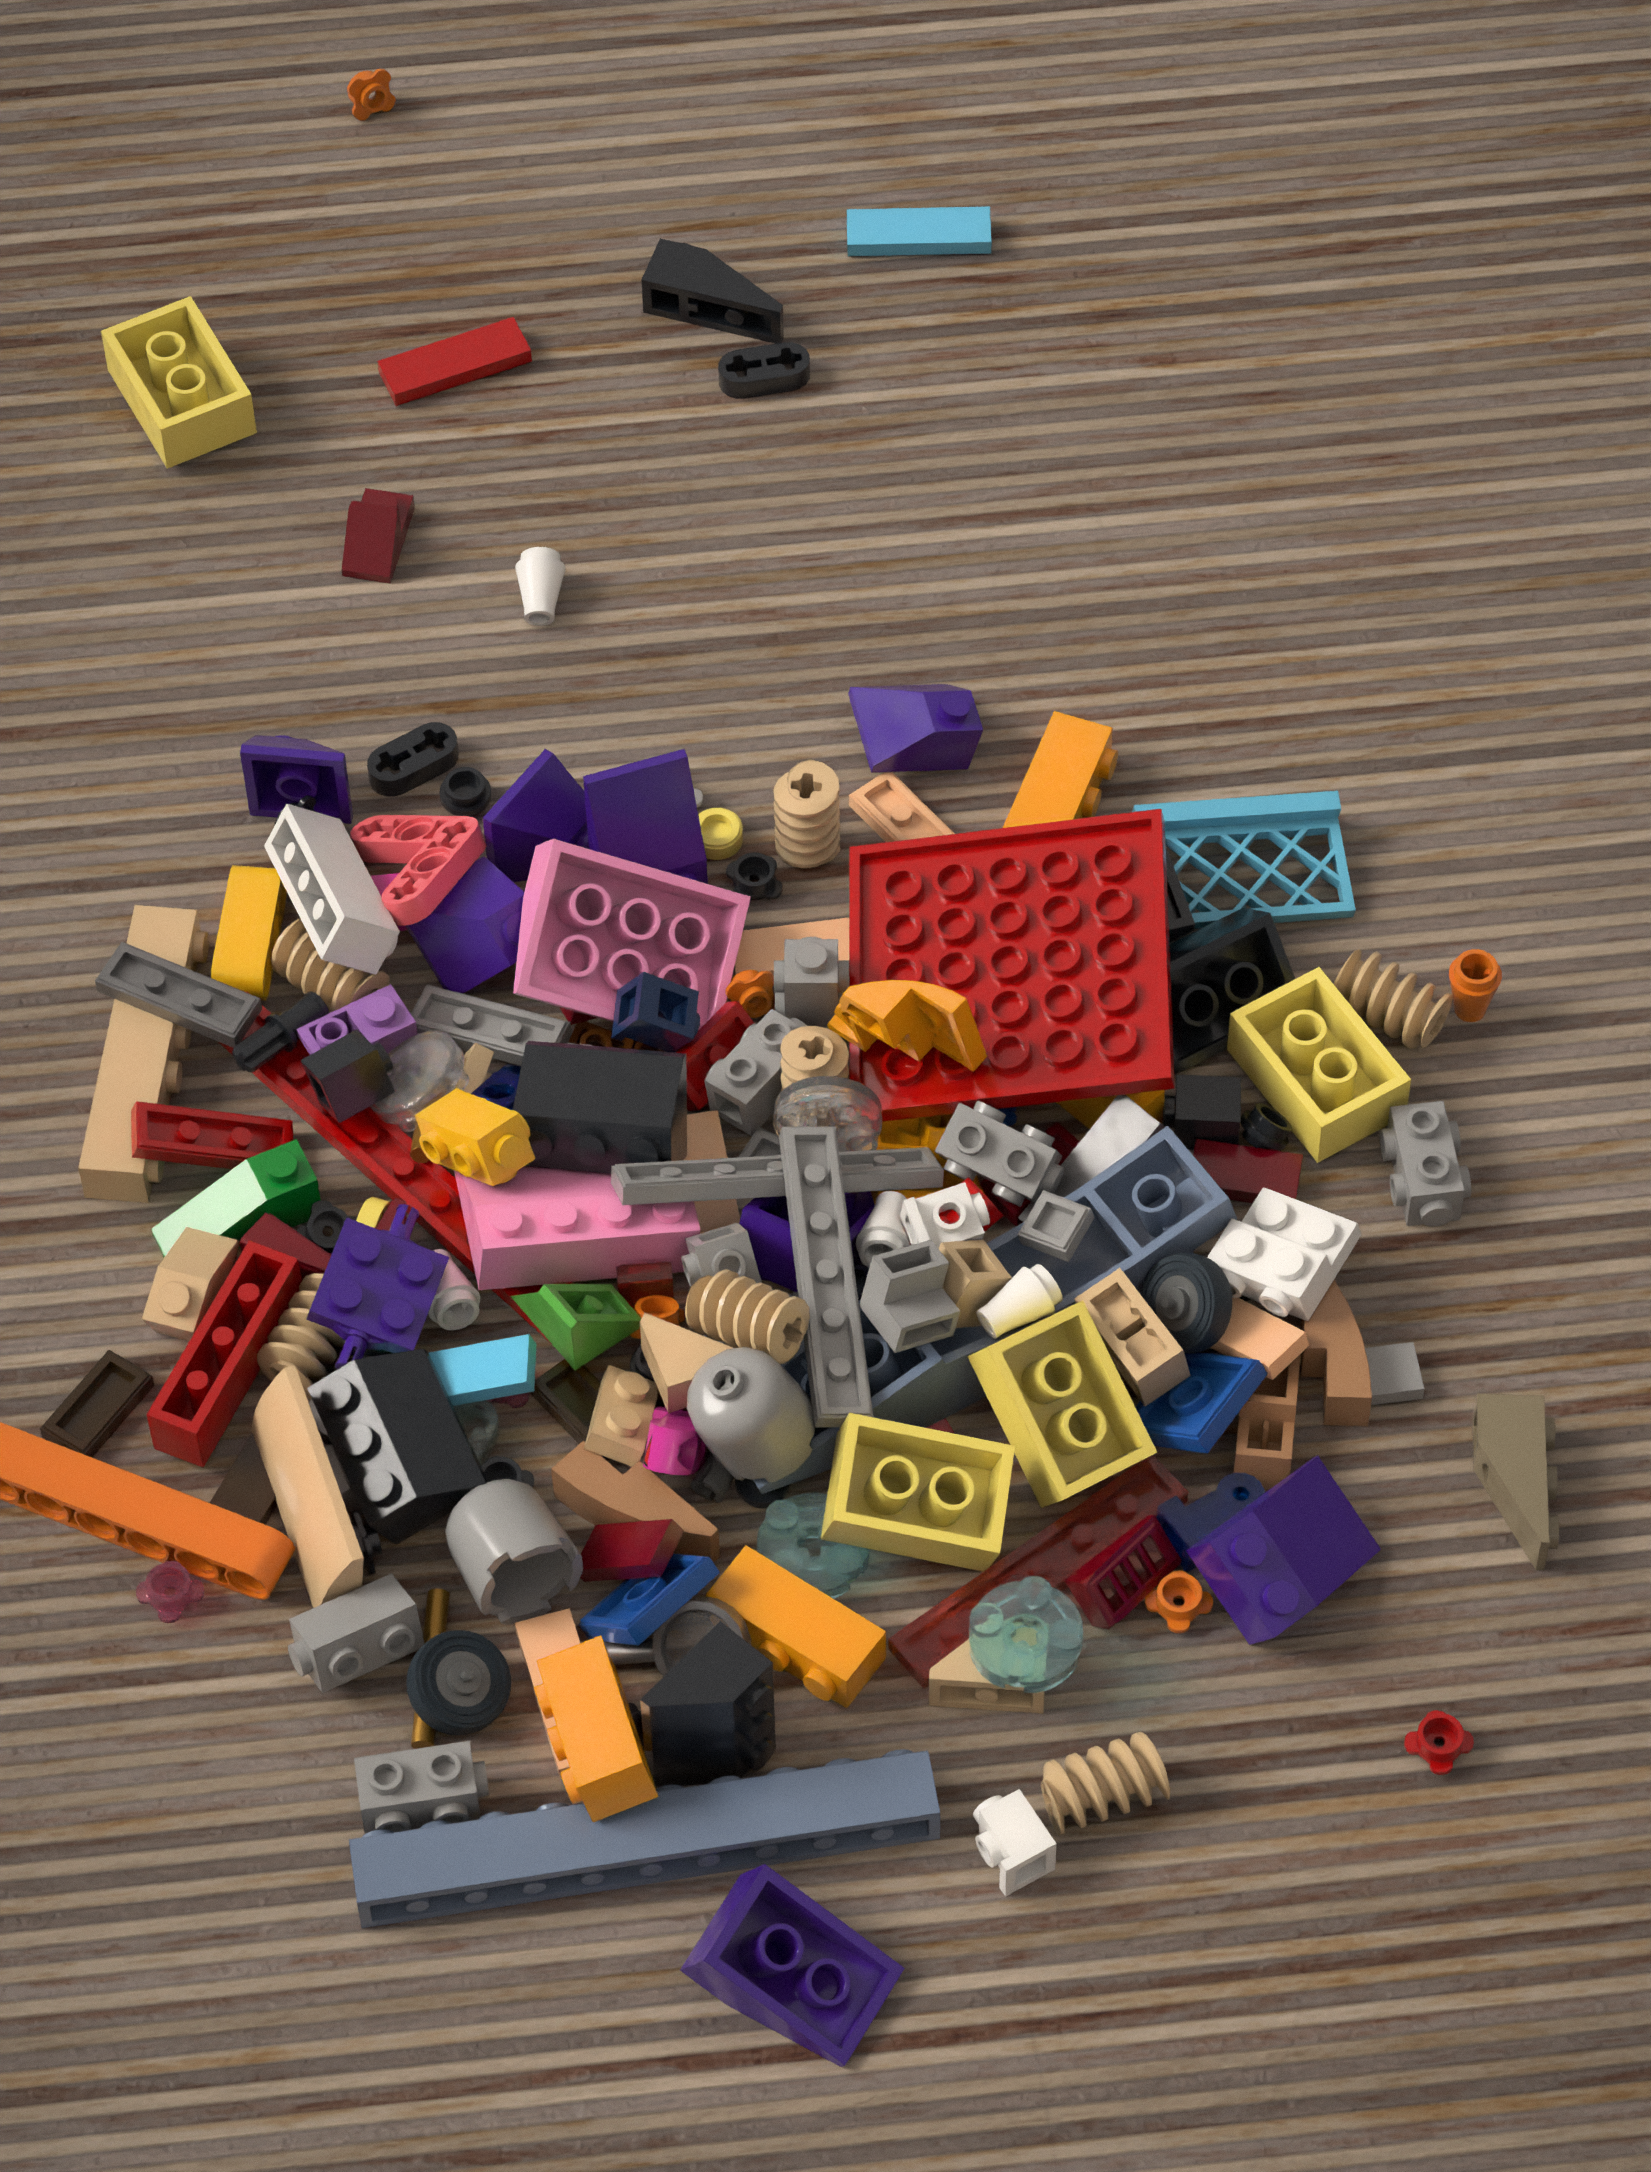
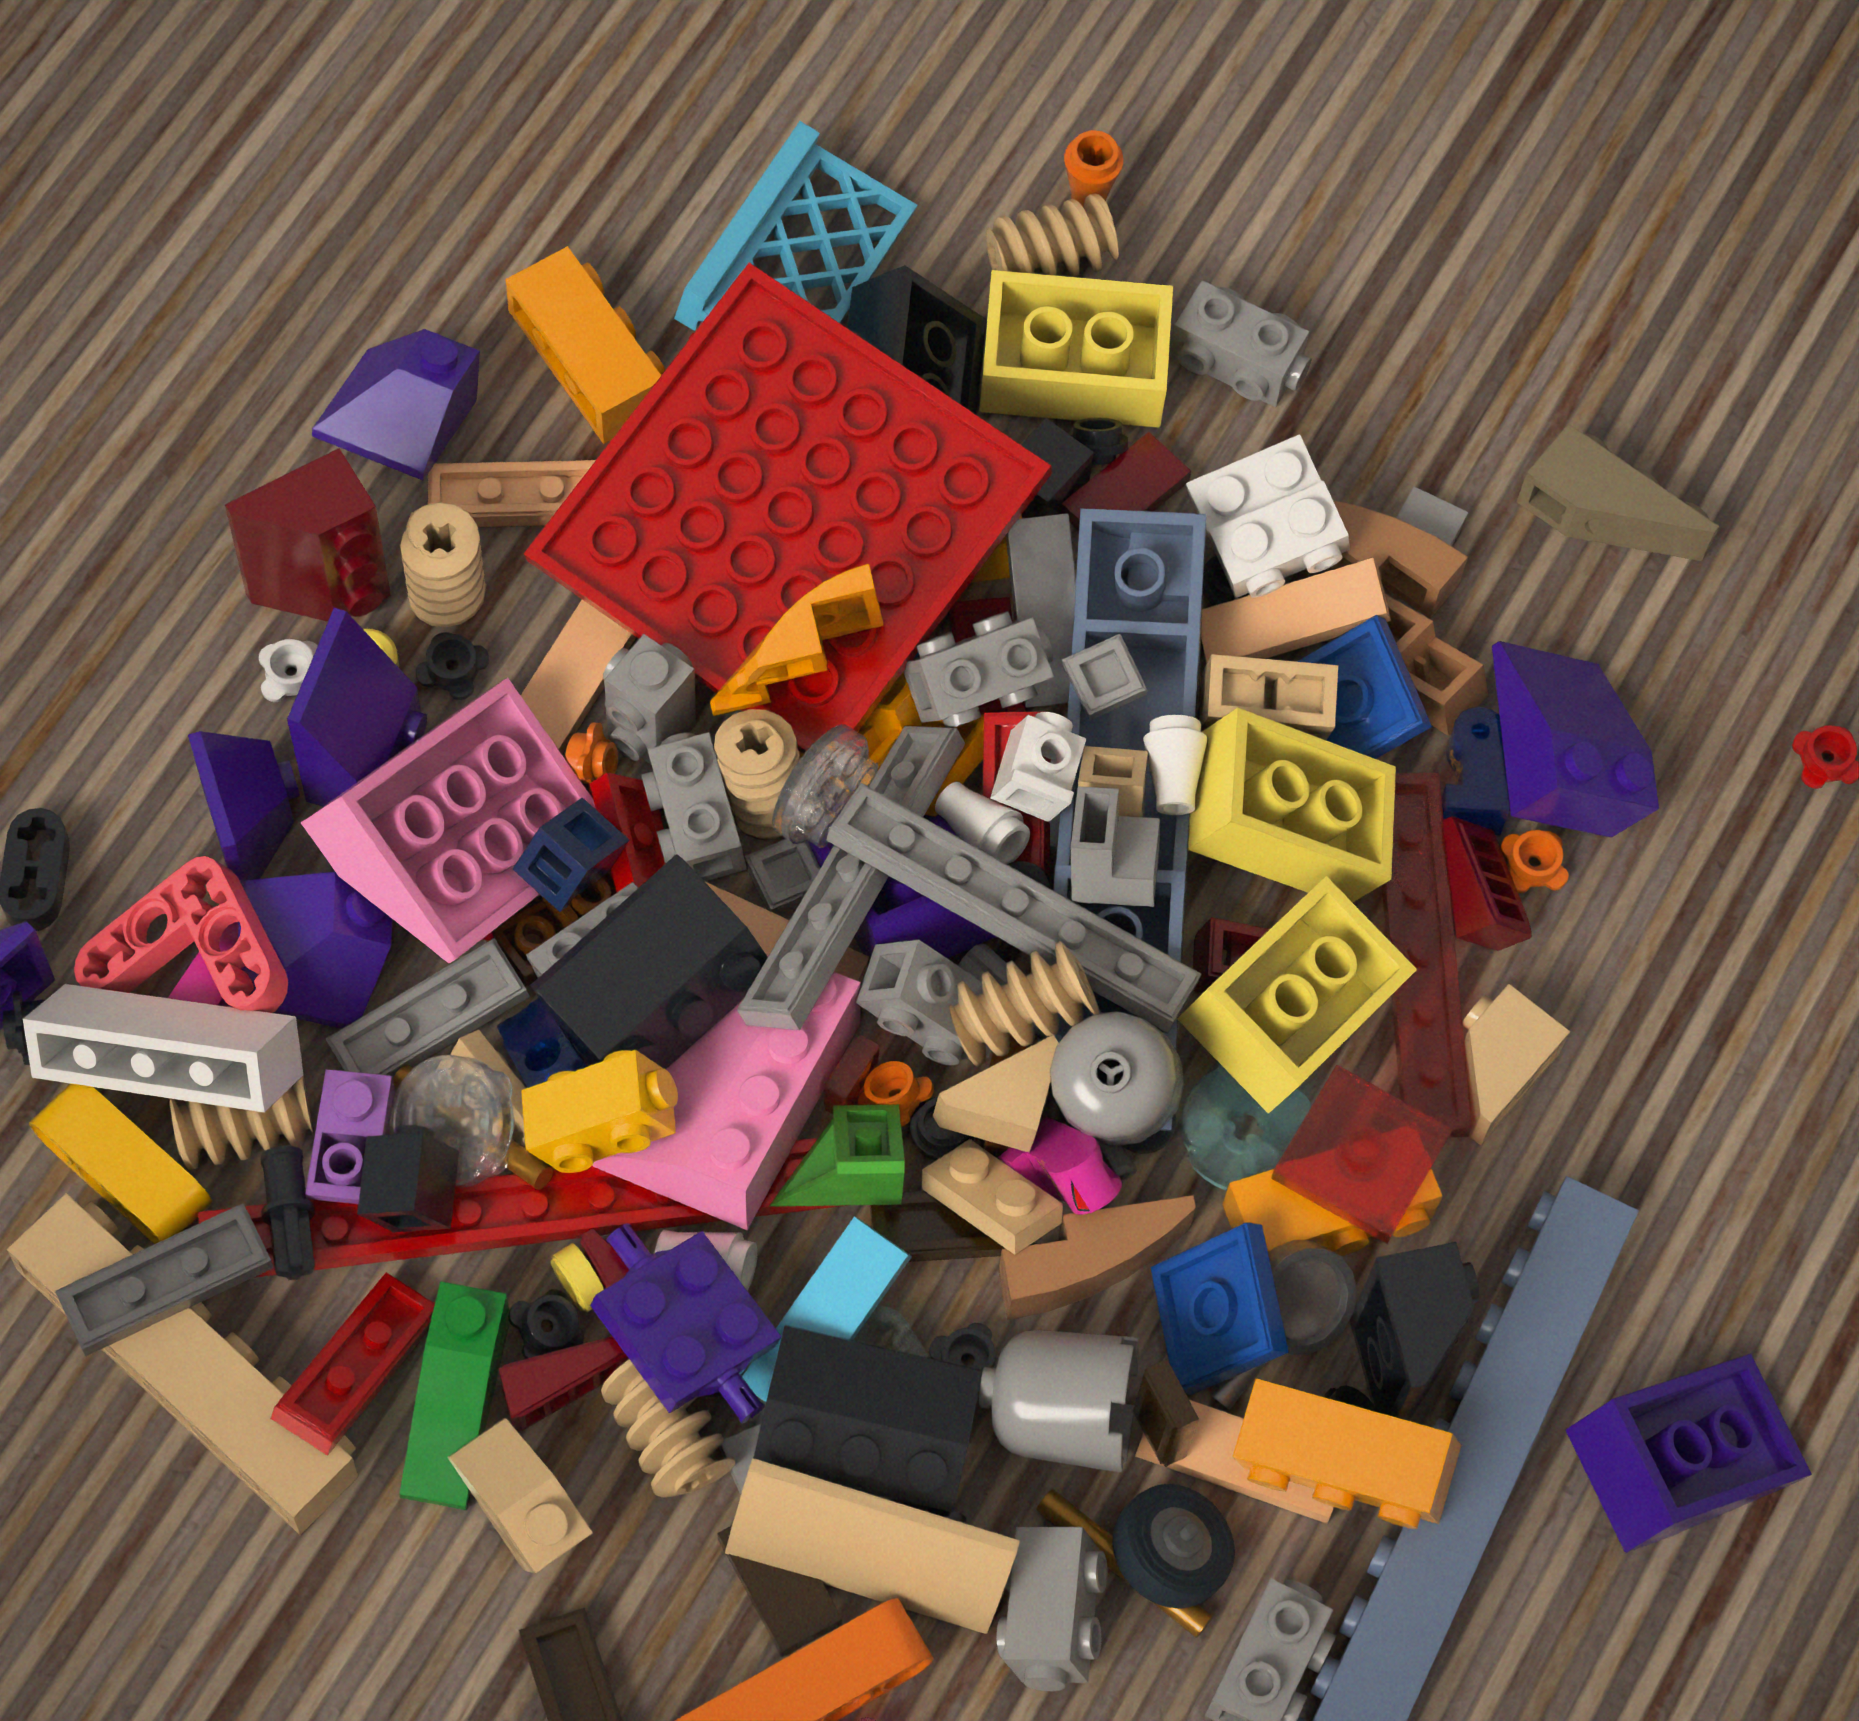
camera: 60 degrees left, 10 degrees up
(223, 1355) = (631, 1517): red brick -> none
(465, 792) = (120, 849): black plate -> none
(534, 1599) = (1165, 1413): none -> dark brown tile
(630, 1550) = (1150, 1288): dark red tile -> none
(751, 725) = (311, 542): none -> dark red slope
(831, 1607) = (1361, 1154): none -> clear red plate
(1014, 1840) = (1692, 1169): white brick -> none
(1029, 1605) = (1540, 983): clear light blue plate -> none
(1103, 1780) = (1687, 1053): tan piece -> none
(1190, 1299) = (1260, 620): black wheel -> none

